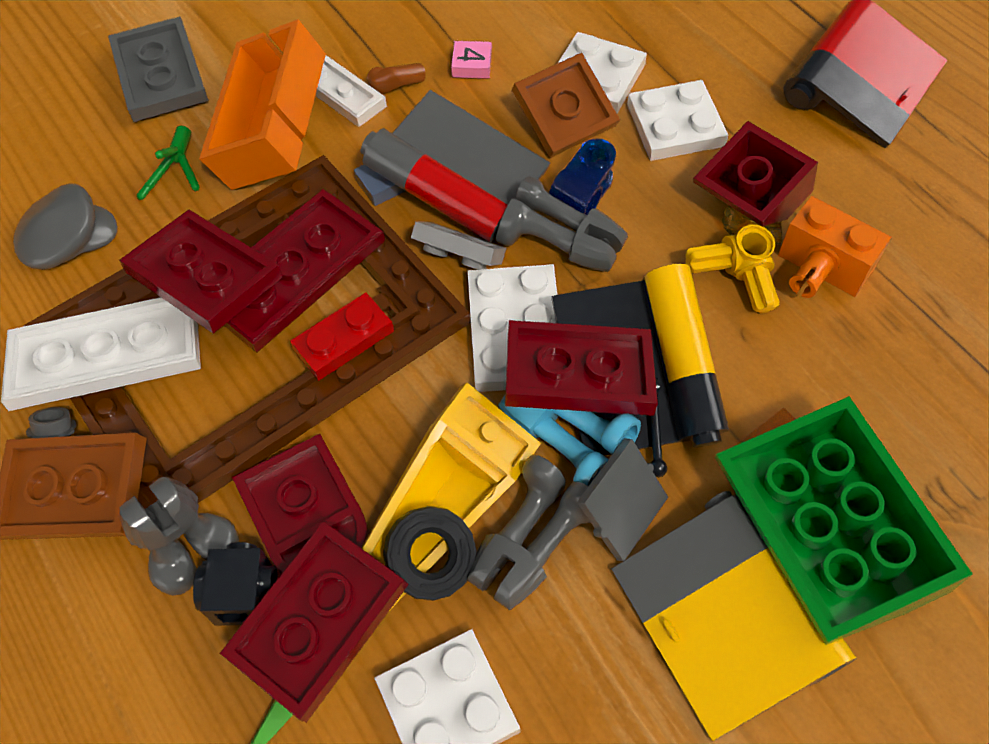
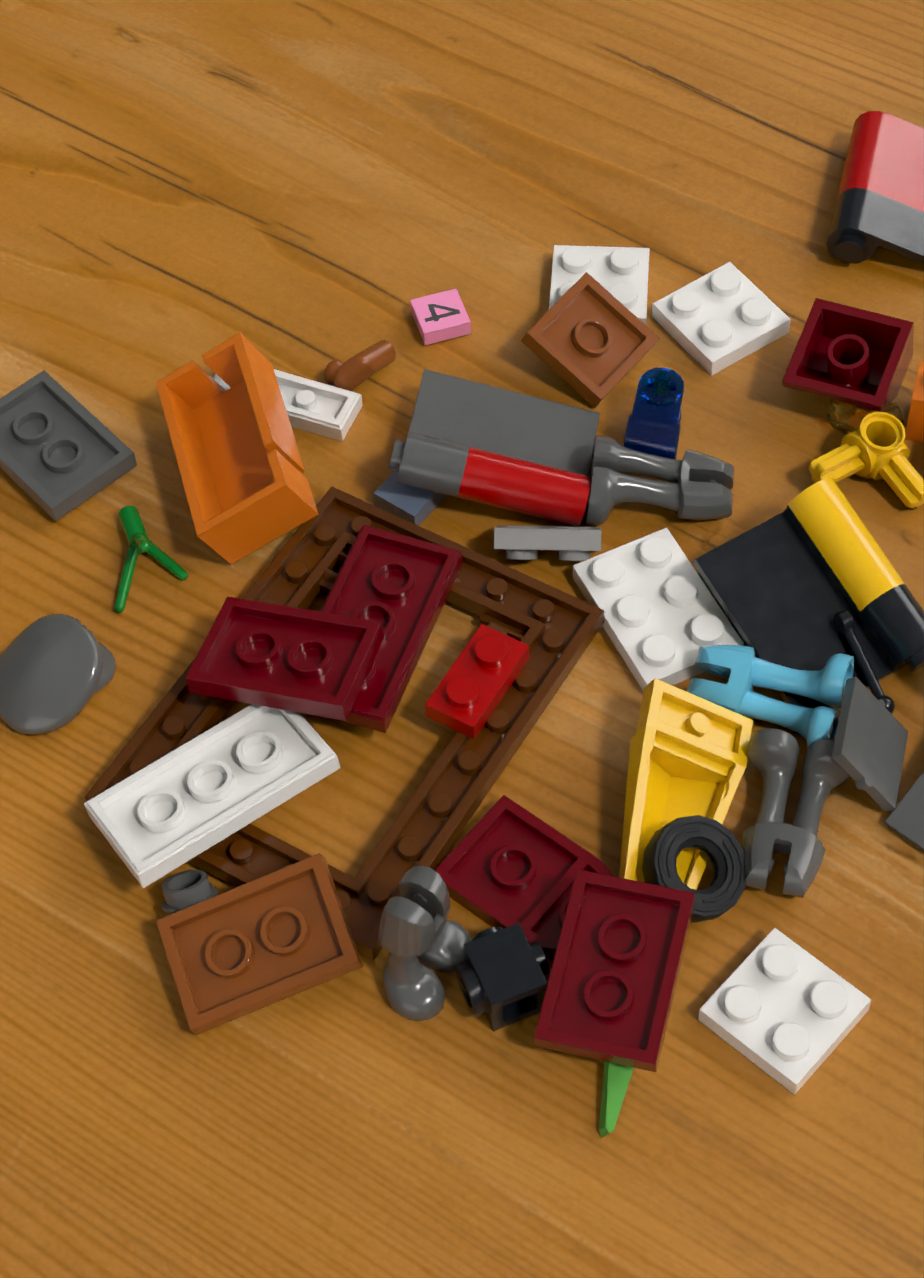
camera: 20 degrees left, 5 degrees down
(580, 368) = (765, 623): dark red plate -> none

